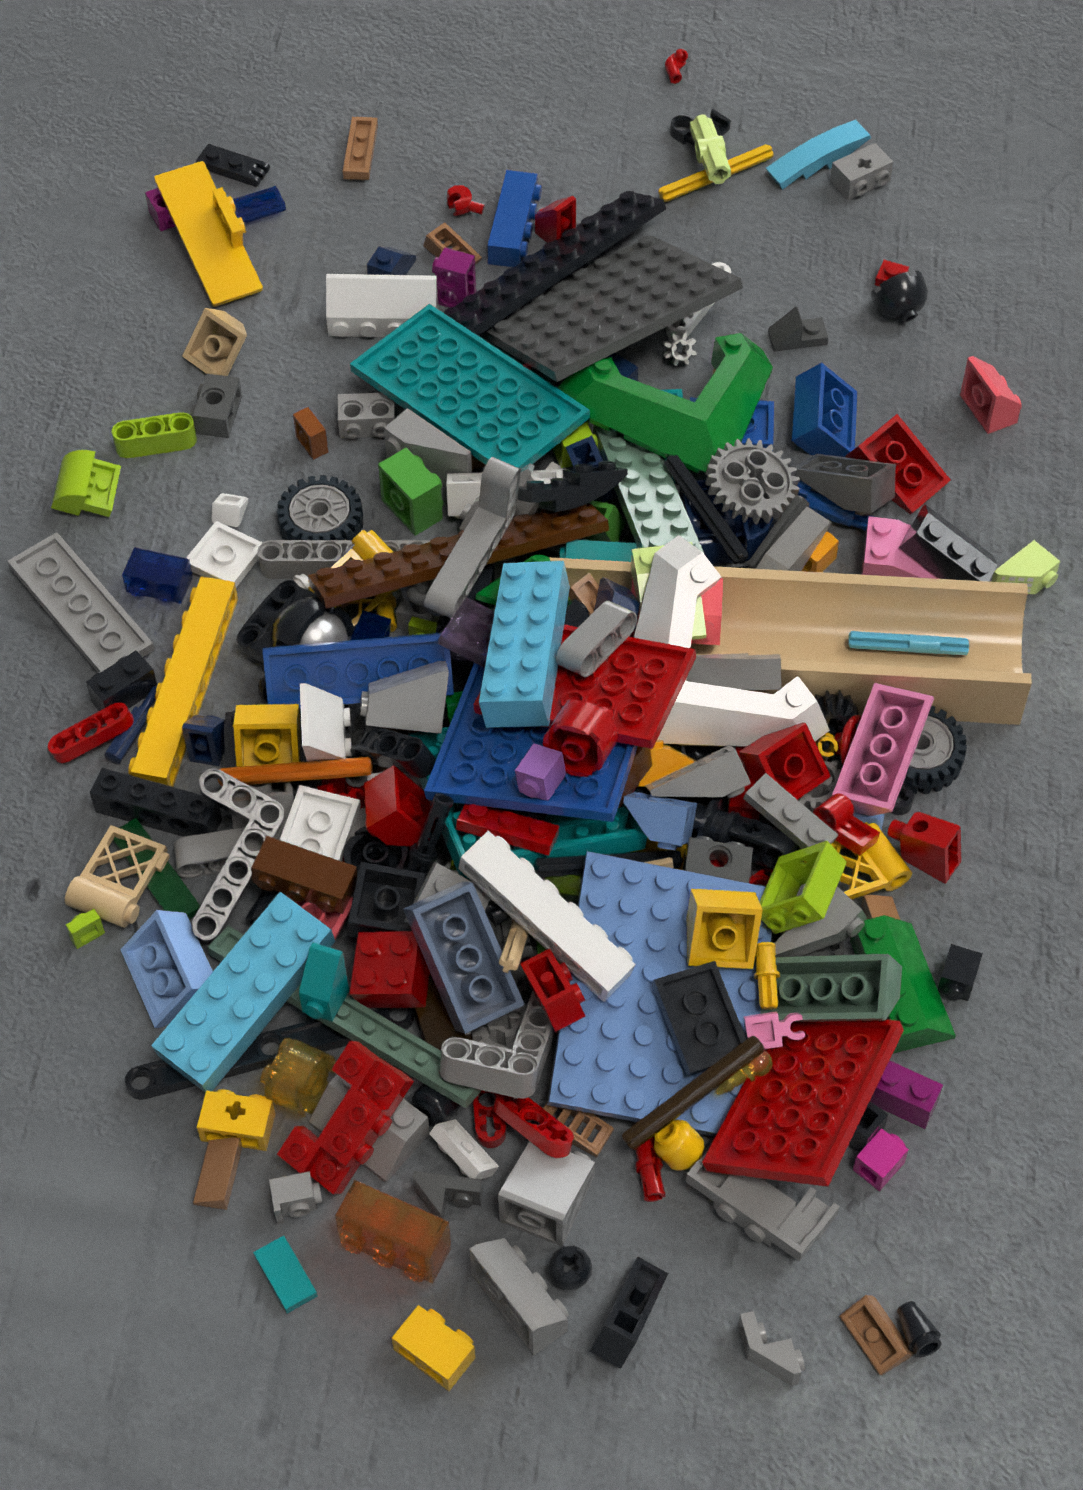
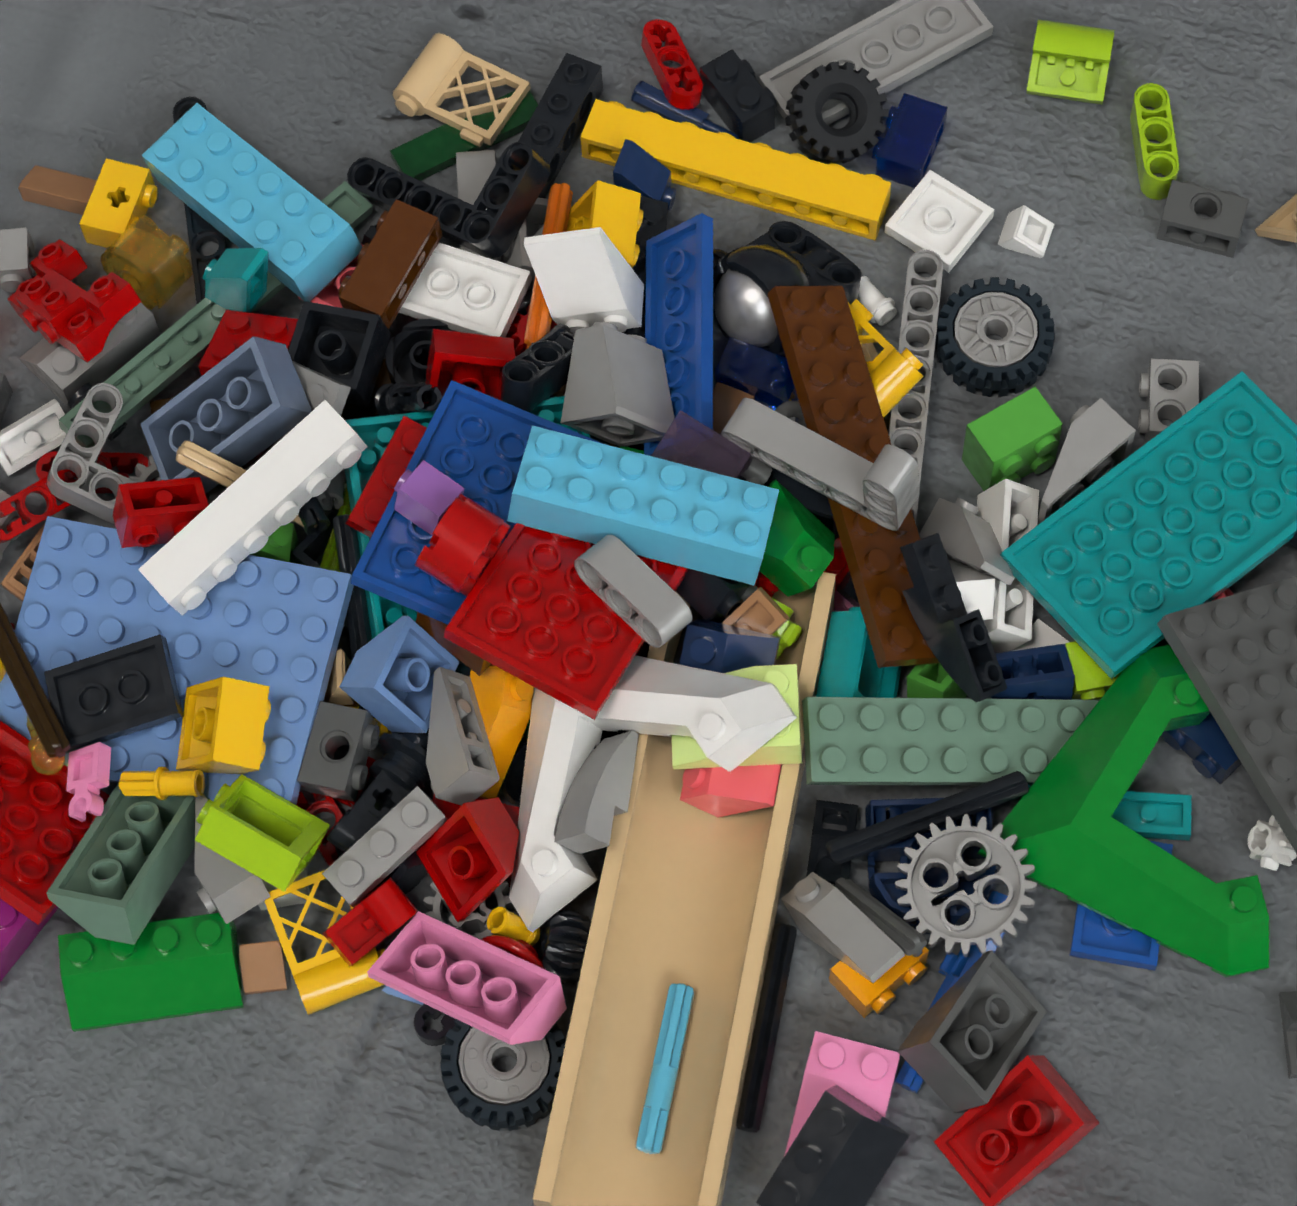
camera: 100 degrees right, 10 degrees up
(85, 928) = (395, 55): lime plate -> none
(141, 613) = (863, 104): none -> black tyre
(166, 964) = (328, 143): light blue slope -> none
(310, 433) = (1139, 329): dark orange piece -> none
(824, 413) = (1128, 1040): blue slope -> none
(929, 844) = (341, 1038): red torso -> none
(959, 973) = (150, 1045): black brick -> none

